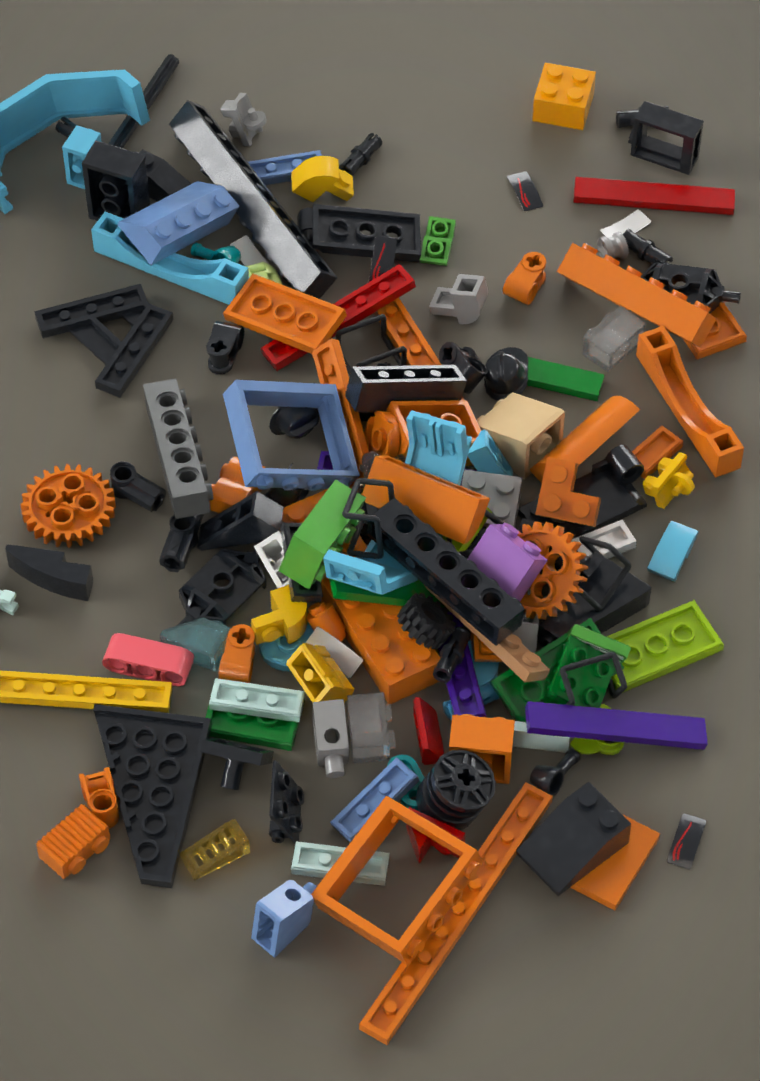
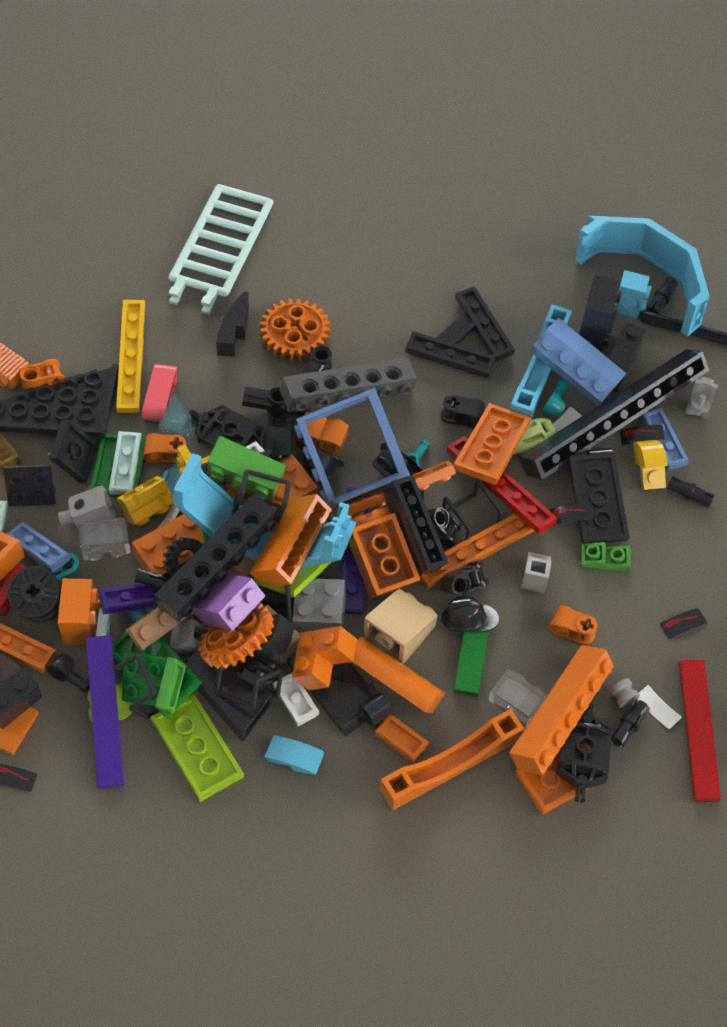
camera: 80 degrees right, 5 degrees up
(278, 182) = (641, 433): none -> black sticker
(427, 731) = (107, 576): red slope -> none
(487, 456) = (362, 601): medium azure slope -> none
(673, 480) = (366, 750): yellow hips -> none

